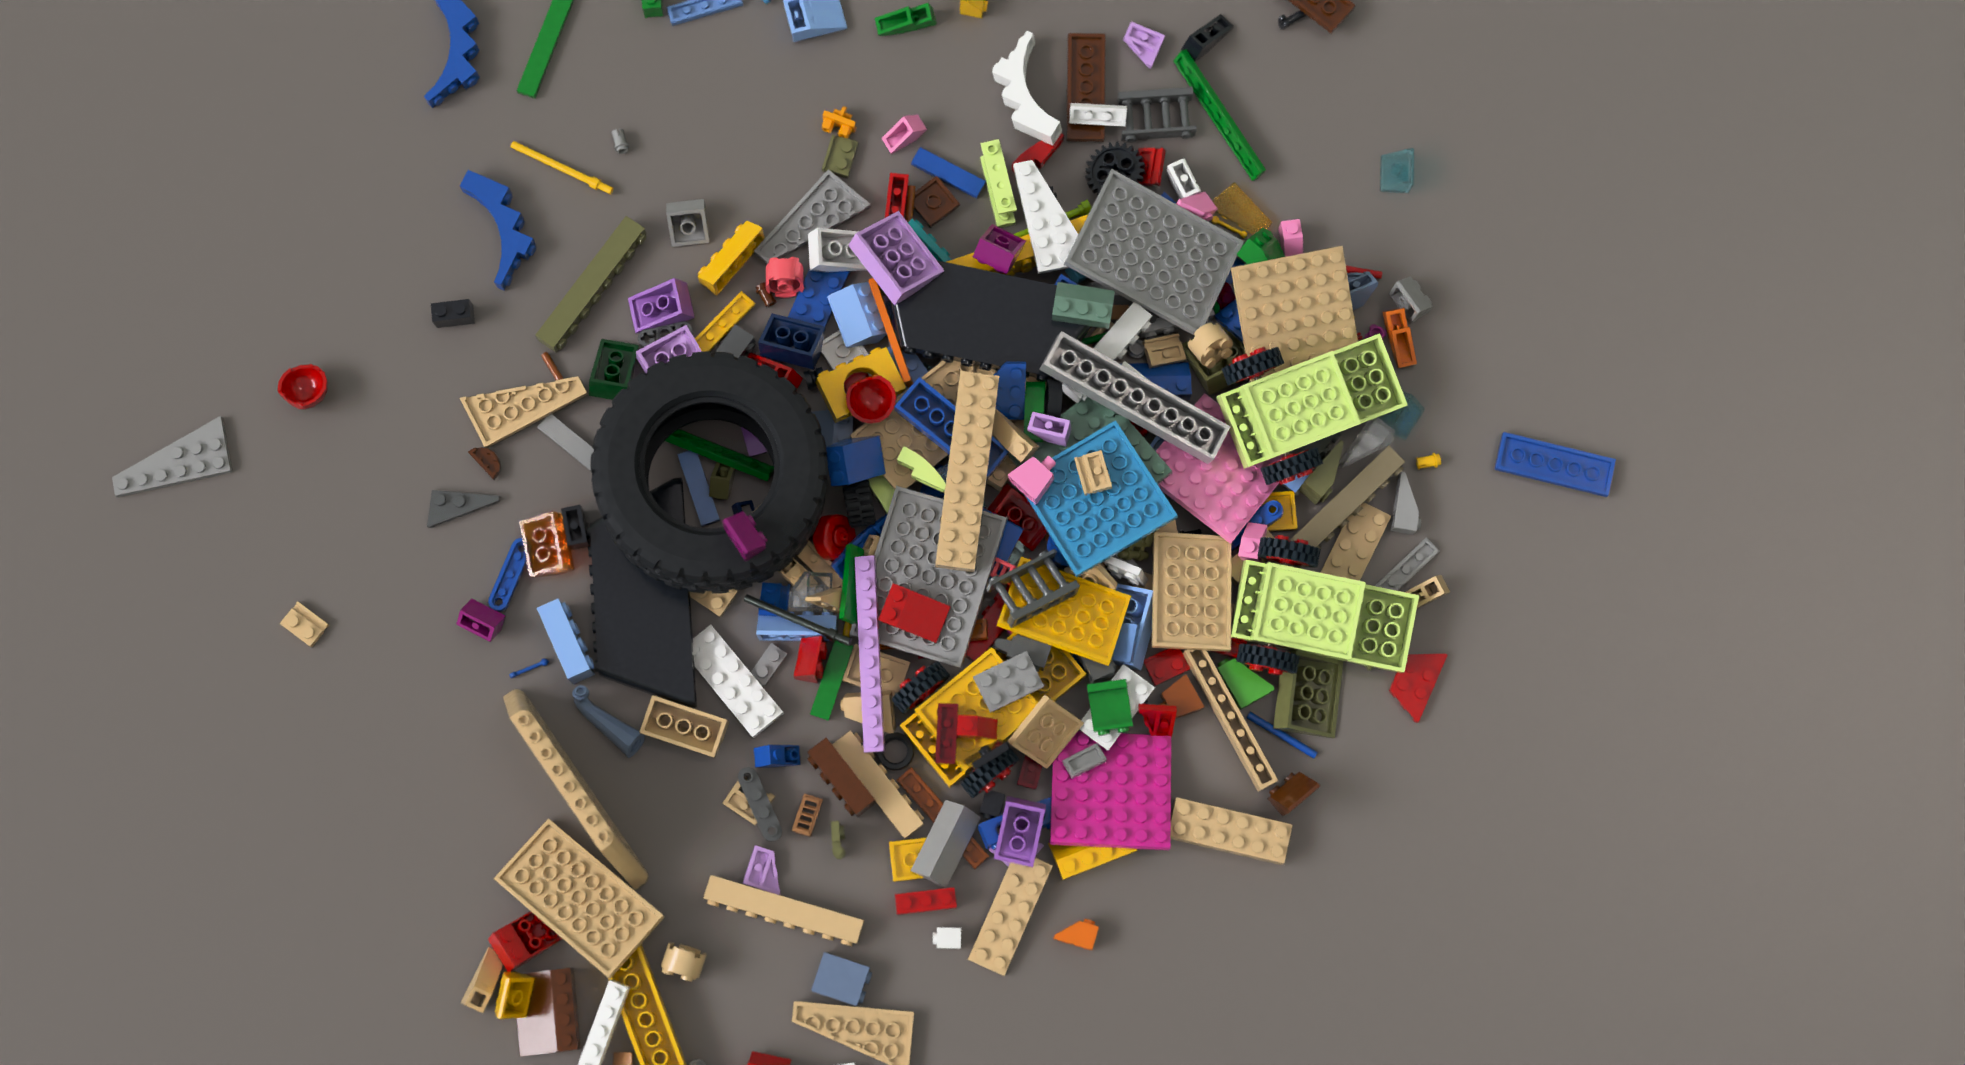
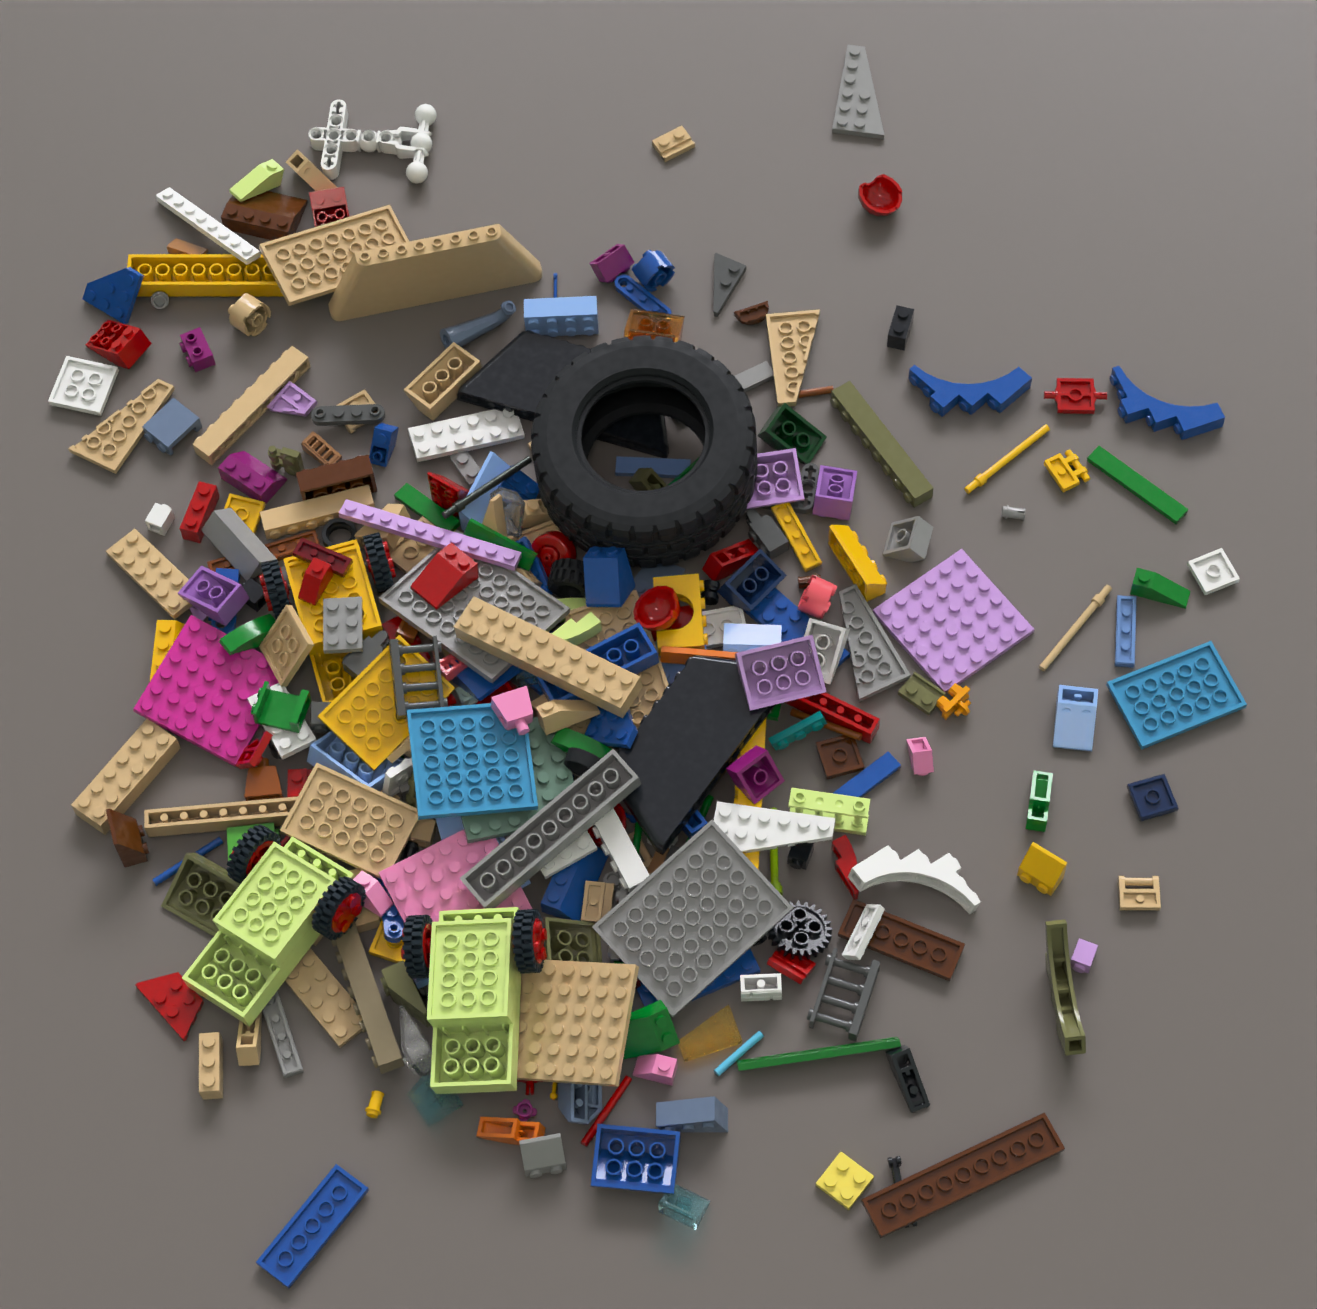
camera: 120 degrees right, 15 degrees down
(401, 884) = (339, 139): none -> white piece
(468, 129) = (1075, 395): none -> red plate
(475, 573) = (653, 270): none -> blue brick
(514, 995) = (287, 187): yellow slope -> none
(516, 1034) = (259, 180): none -> yellowish green slope
(558, 113) = (1063, 474): none -> yellow plate
(684, 38) = (1096, 601): none -> tan bar
(741, 999) = (197, 350): none -> magenta brick
(744, 535) = (559, 427): magenta slope -> none
(754, 155) = (953, 621): none -> lavender plate
(862, 869) = (251, 476): none -> magenta slope
(987, 754) = (285, 576): black plate -> none
(1044, 777) = (247, 635): none -> green slope
(1050, 428) = (556, 746): lavender slope -> none
(1079, 934) = (105, 620): orange slope -> none
(1083, 305) = (660, 816): sand green slope -> none
(1084, 760) = (248, 675): light grey tile -> none
(1093, 473) = (494, 760): tan plate -> none
(1126, 643) = (332, 747): medium blue tile -> none
(1144, 42) = (926, 1015): lavender wing -> none
(1199, 204) = (727, 987): bright pink slope -> none
(1211, 344) = (577, 933): tan brick -> none
(1215, 220) = (711, 1010): yellow hinge -> none
(1244, 181) = (738, 1053): none -> medium azure bar
(1315, 56) = (844, 1180): none -> light yellow plate
(1322, 194) = (692, 1115): none -> sand blue wedge
(1379, 222) = (635, 1158): none -> blue slope
(1405, 510) = (337, 1059): light grey slope -> none
(1461, 615) = (210, 1065): none -> tan brick

